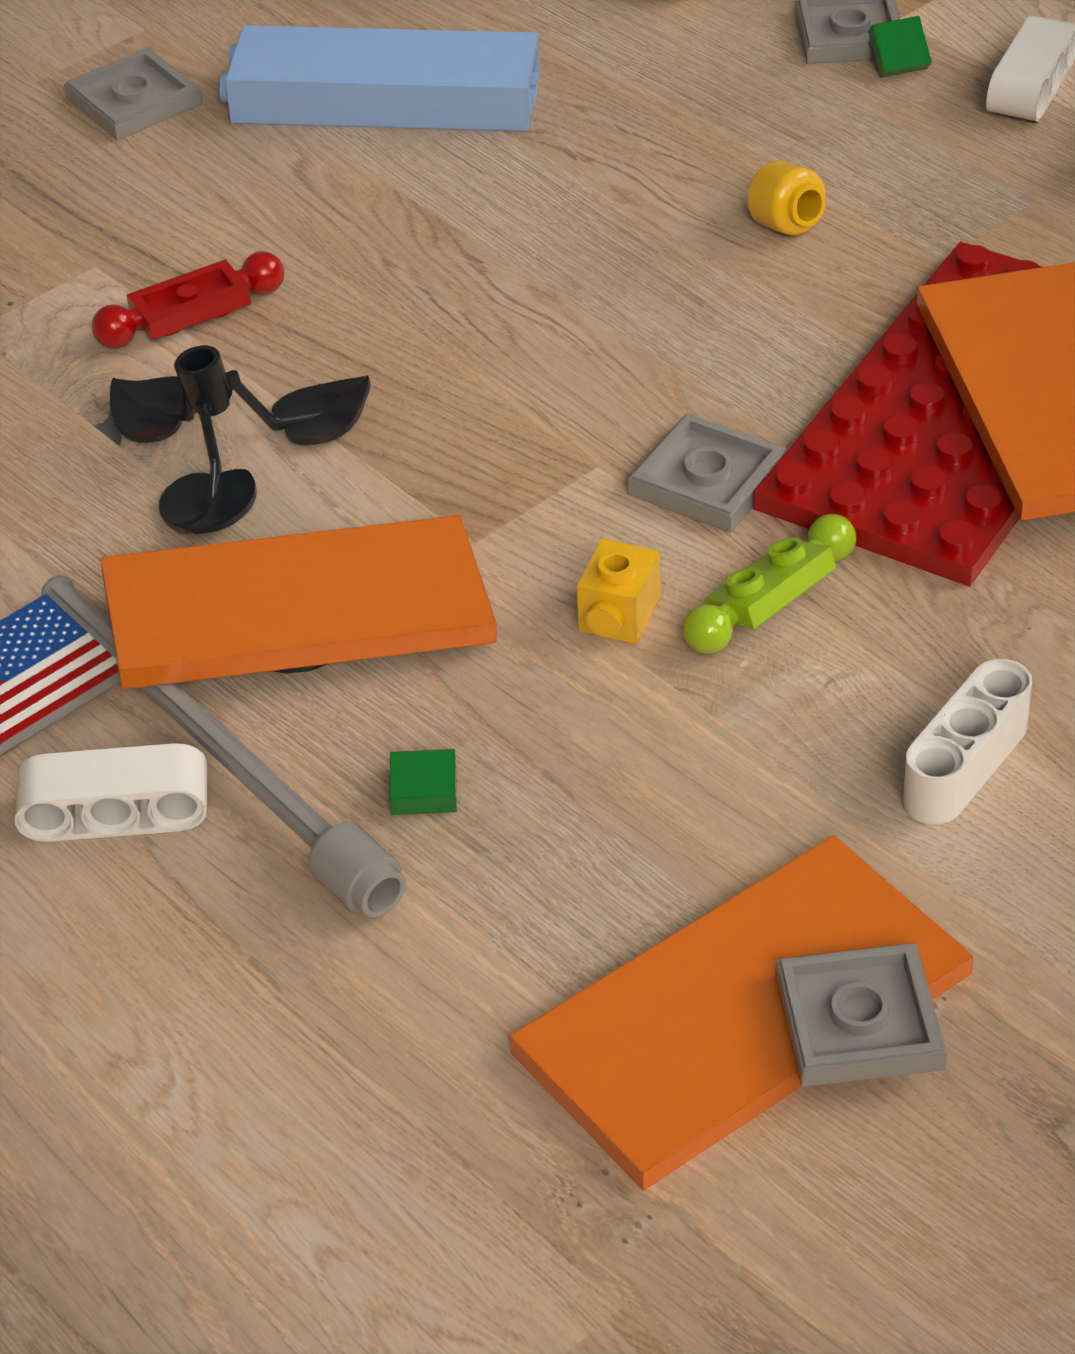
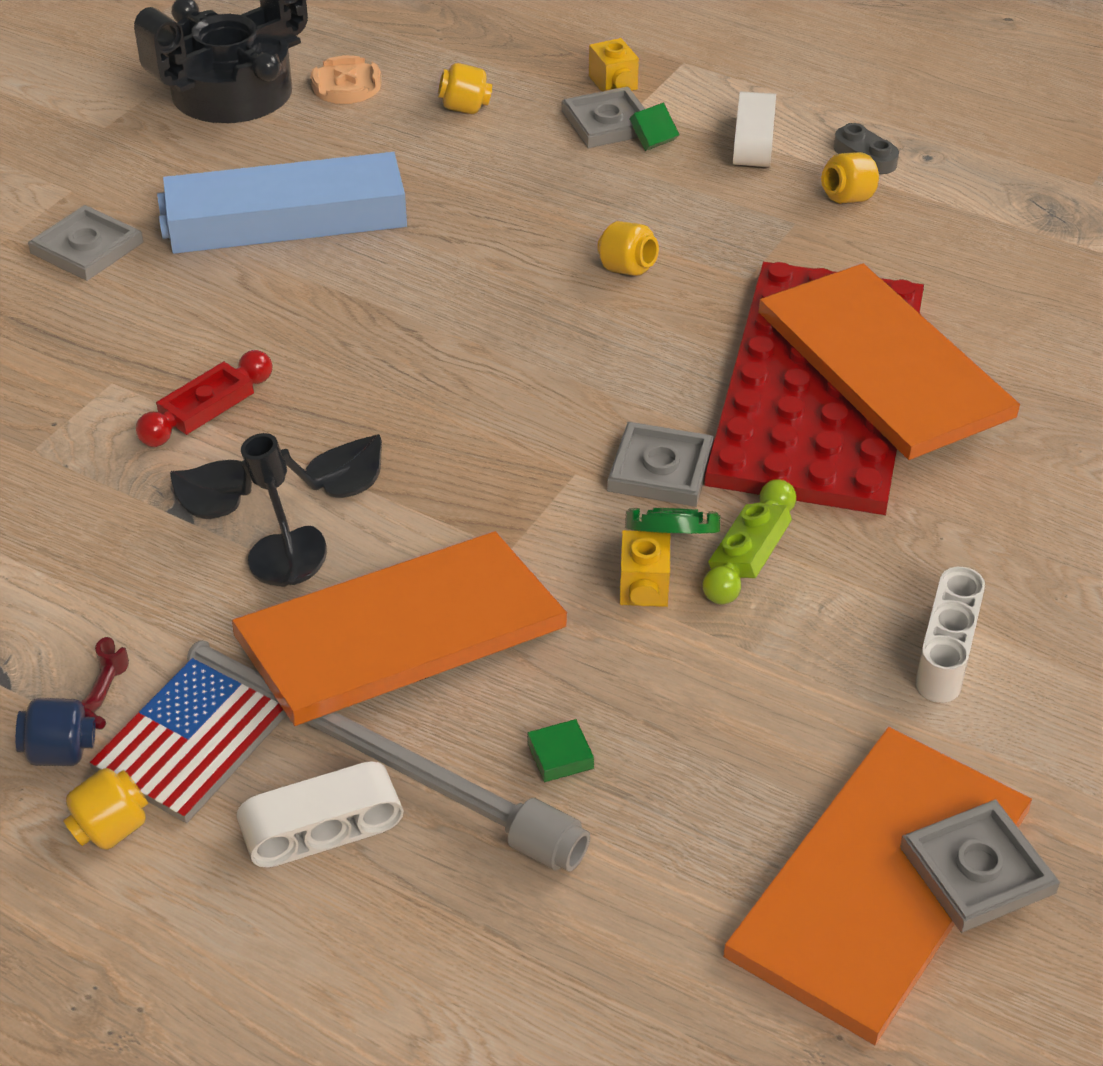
camera: 20 degrees left, 0 degrees up
(675, 539) = (673, 521): none -> green tile

